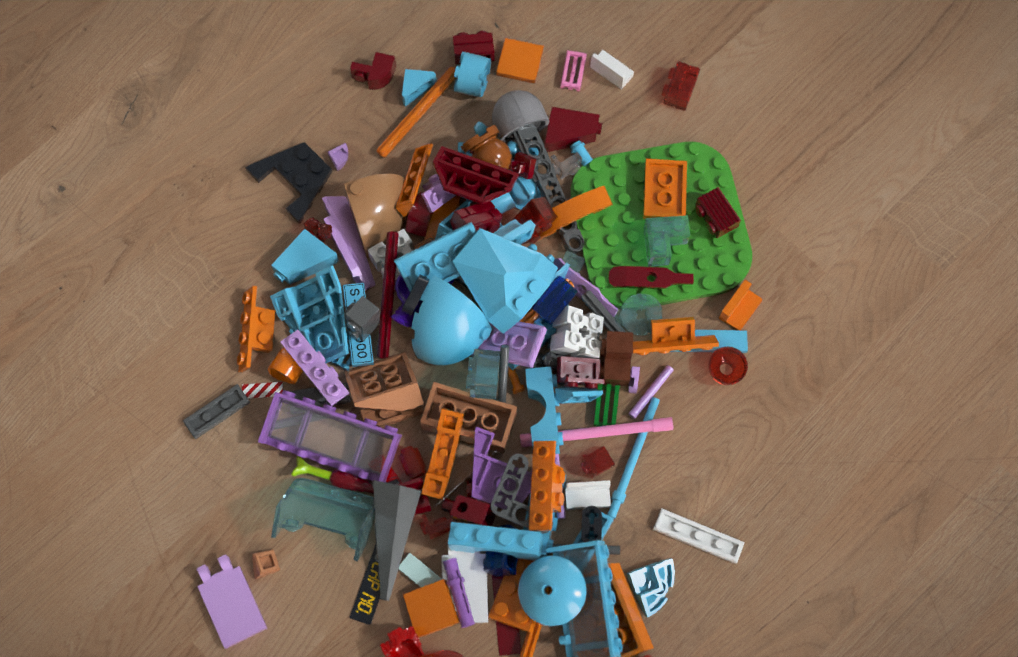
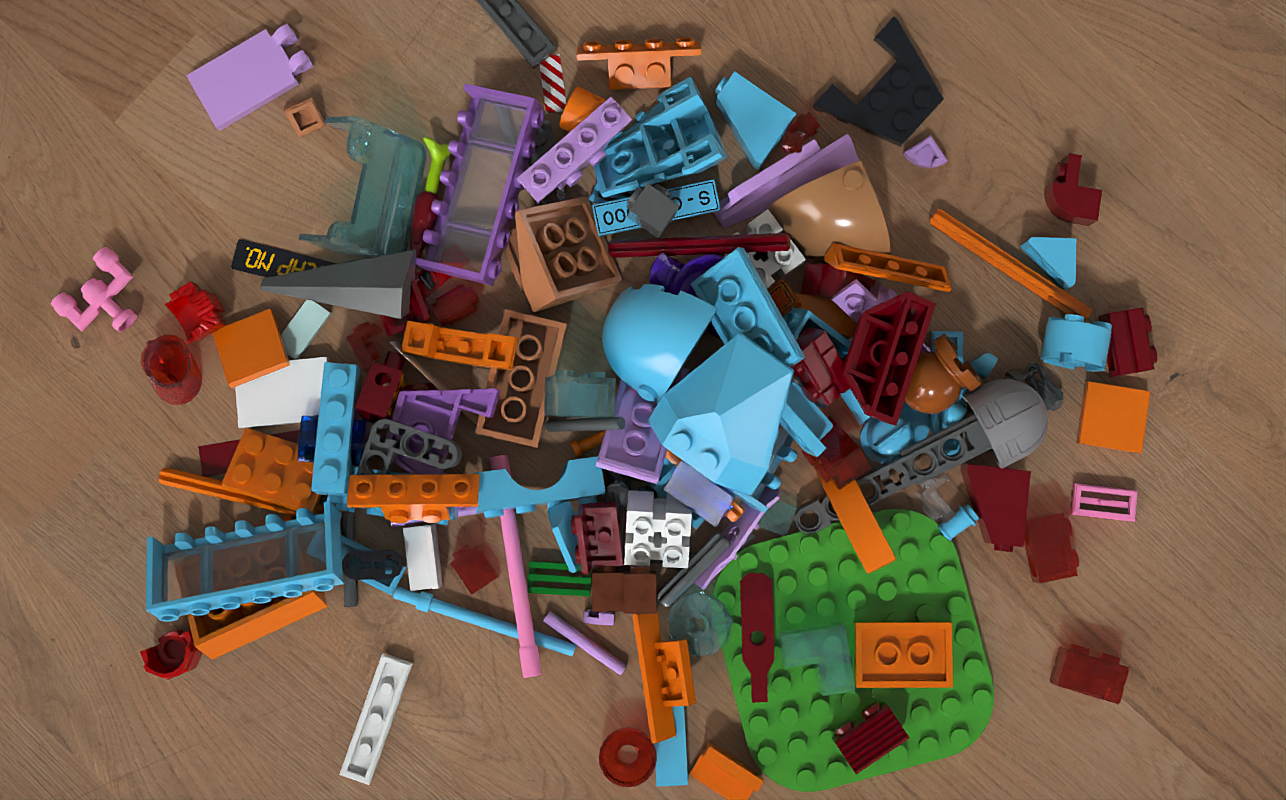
camera: 90 degrees right, 15 degrees up
(415, 294) = (690, 284): black beam -> none
(459, 595) = (283, 379): medium lavender pin -> none
(486, 104) = (1044, 387): none -> dark grey piece
(523, 165) = (923, 432): dark red tile -> none
(567, 590) = (284, 524): medium azure dish -> none
(602, 101) = (1050, 548): none -> clear red brick
(611, 69) = (1111, 562): white panel -> none
(651, 585) = (303, 653): medium azure brick -> none

